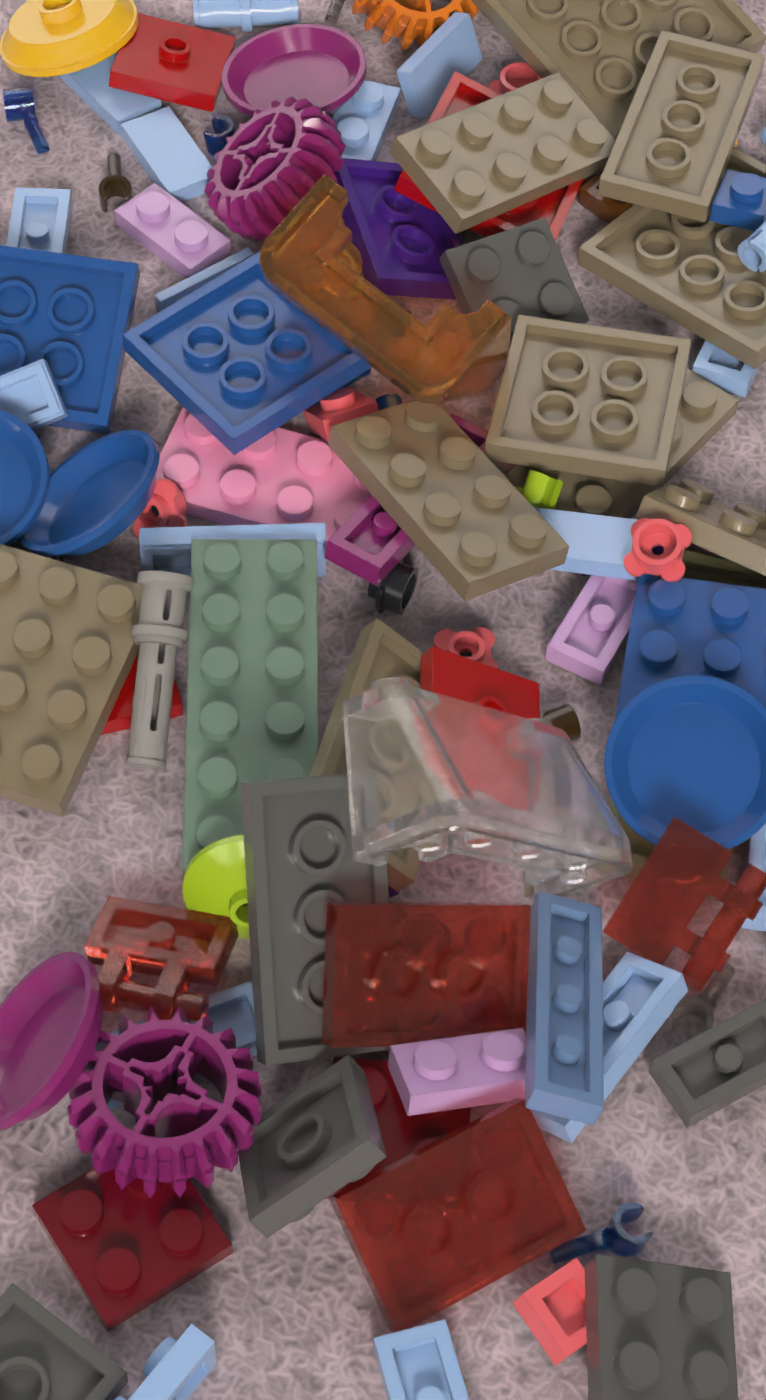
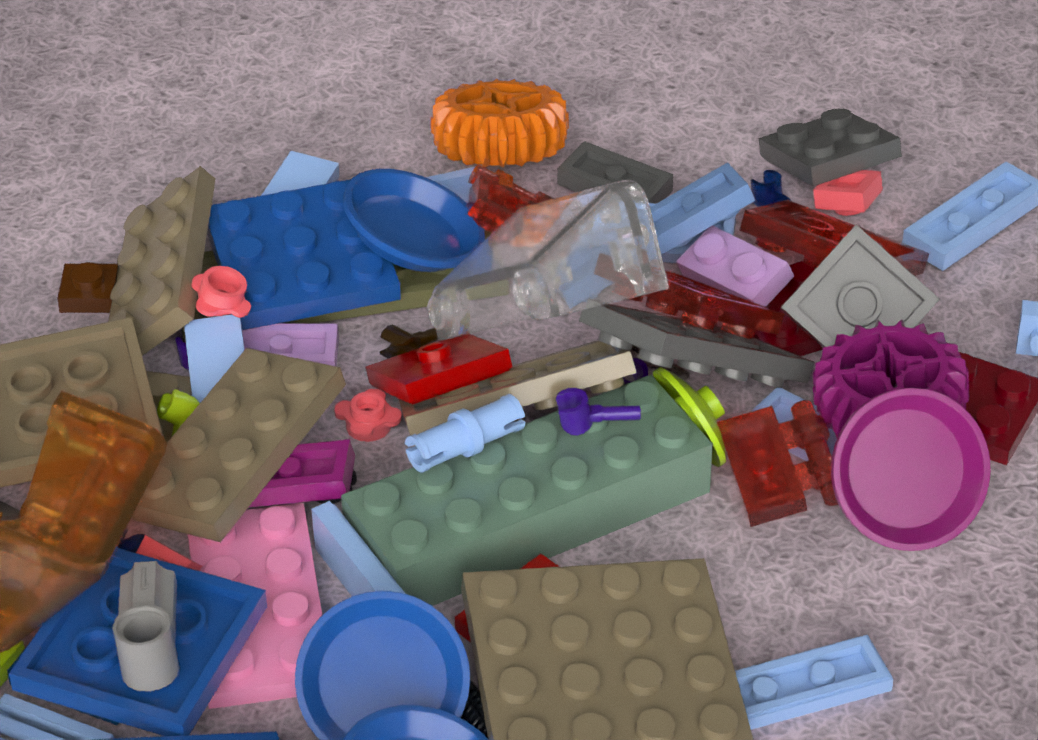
camera: 115 degrees left, 15 degrees down
(158, 638) = (515, 549): light grey pin -> none
(208, 320) = (147, 627): none -> light grey piece
(274, 752) = (578, 415): none -> dark purple hand
(300, 633) = (465, 433): none -> light blue pin

